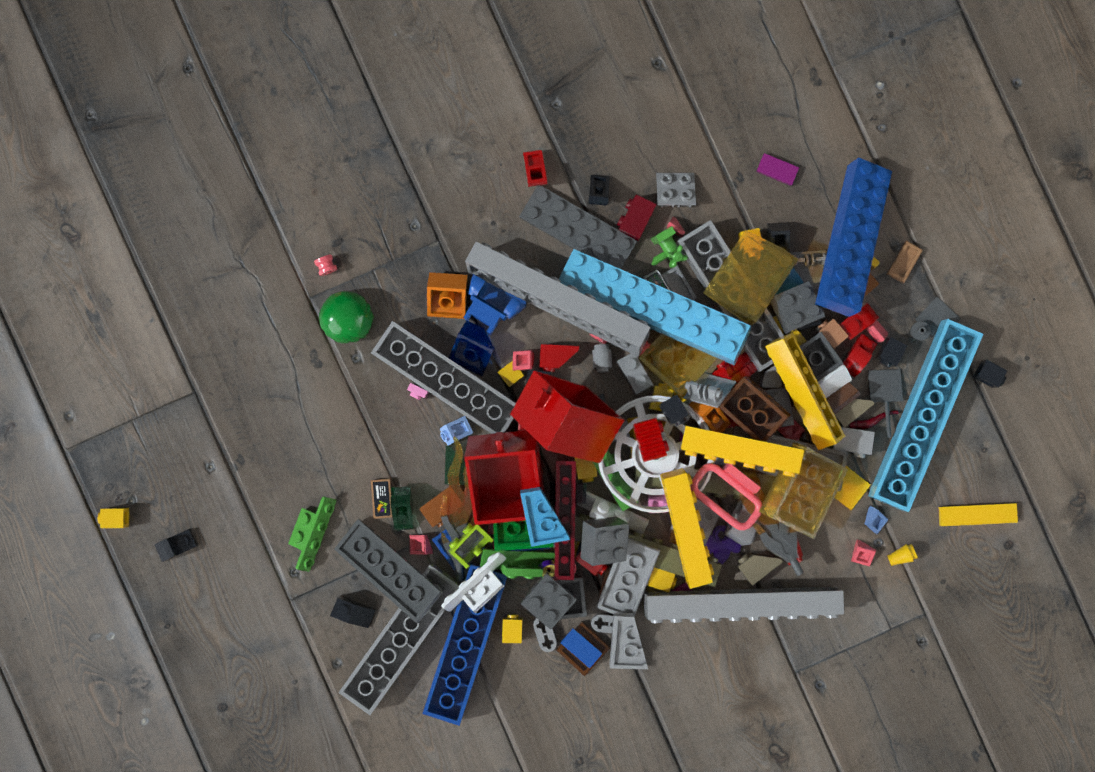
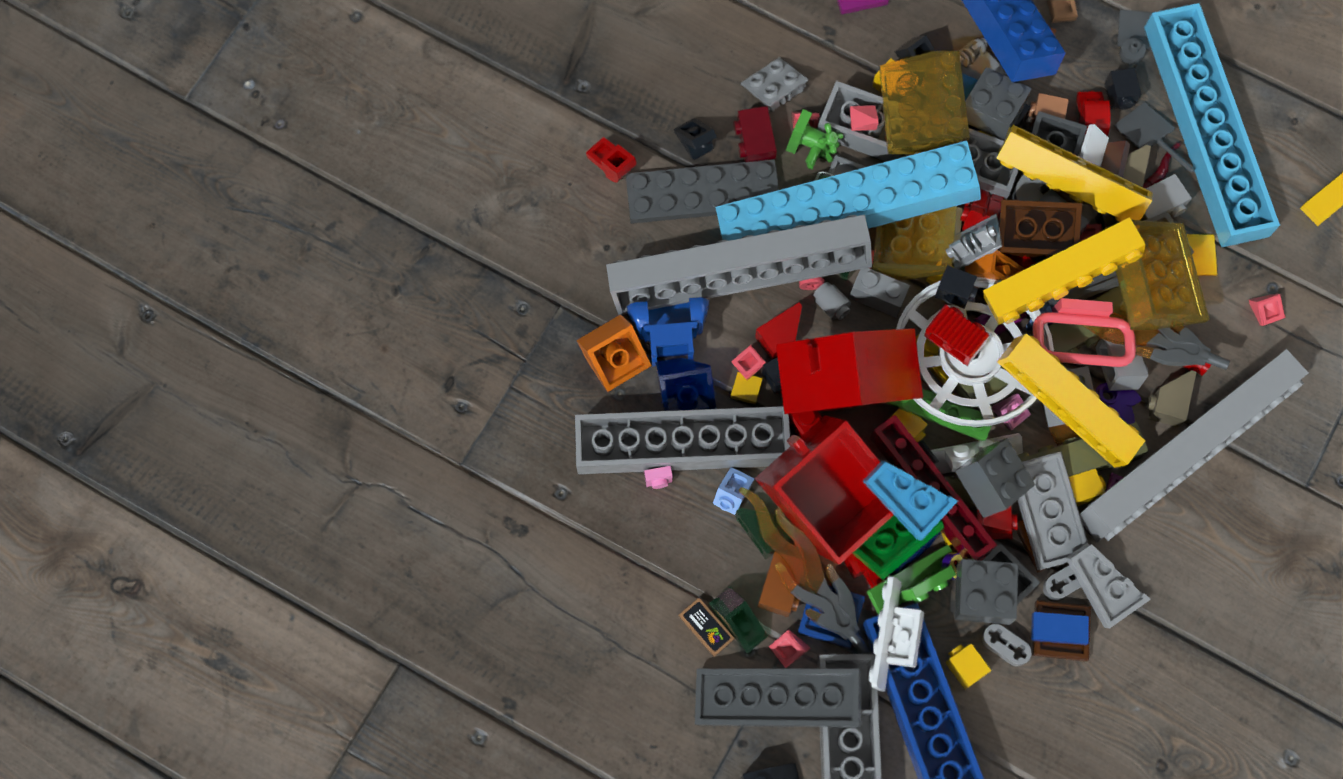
camera: 30 degrees left, 15 degrees down
(310, 531) = (651, 725): bright green bracket -> none
(325, 265) = (454, 413): coral wheel -> none
(346, 317) = (518, 452): green piece -> none
(469, 544) = (847, 596): lime window -> none
(660, 390) = (932, 304): yellow brick -> none
(707, 257) = (863, 118): none -> coral slope
(860, 321) = (1066, 80): red brick -> none
(875, 520) = (1249, 265): medium blue slope -> none
(877, 332) = (1091, 82): coral slope -> none
(902, 555) = (1309, 279): yellow cone -> none
(990, 374) = (1237, 42): black brick -> none

